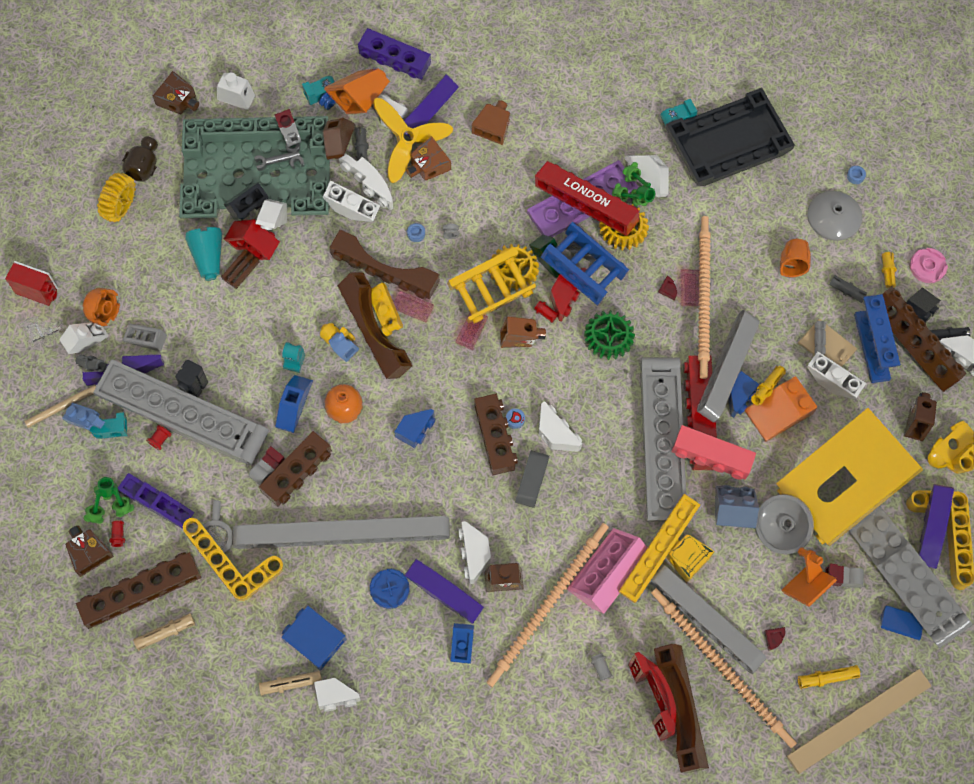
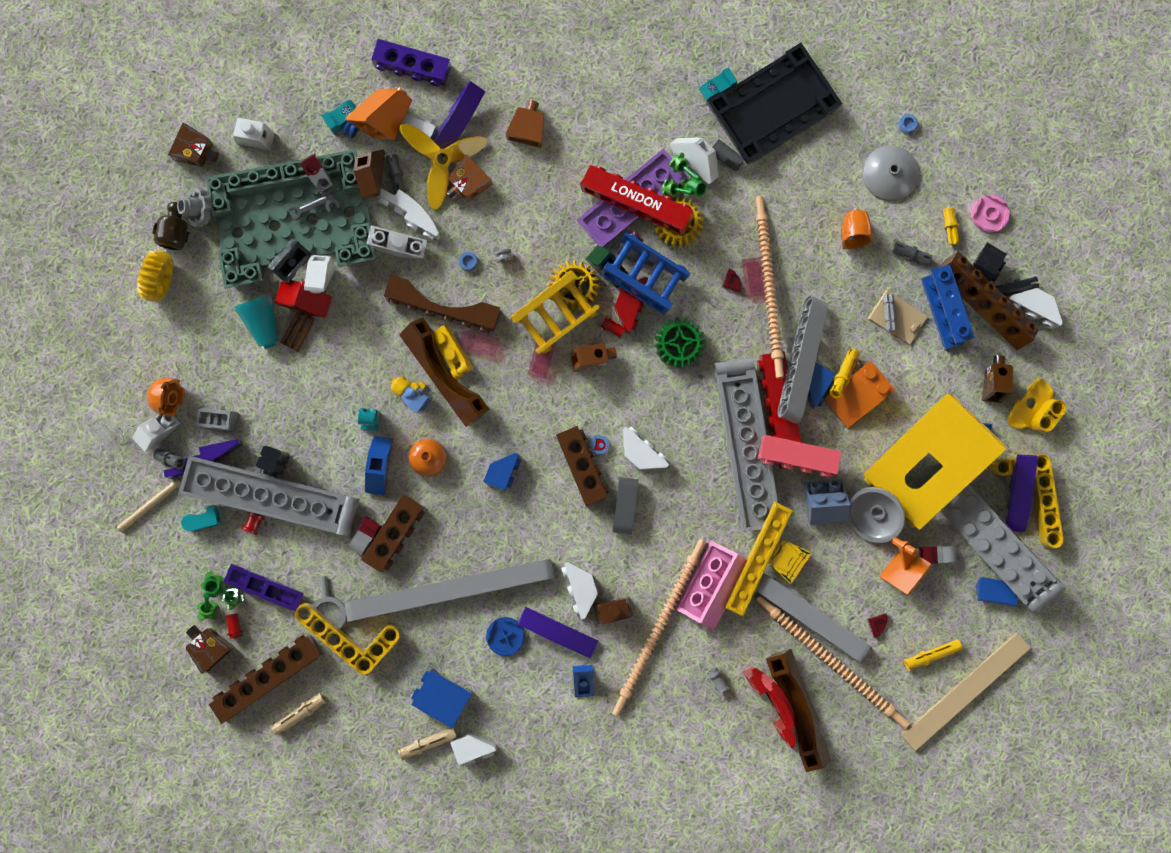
camera: 10 degrees left, 15 degrees up
(32, 283) = (91, 384): red piece -> none
(82, 417) = (173, 515): medium blue hinge -> none
(168, 144) = (196, 207): none -> light grey plant
(679, 176) = (727, 155): none -> dark grey hinge
(834, 377) = (909, 353): white slope -> none

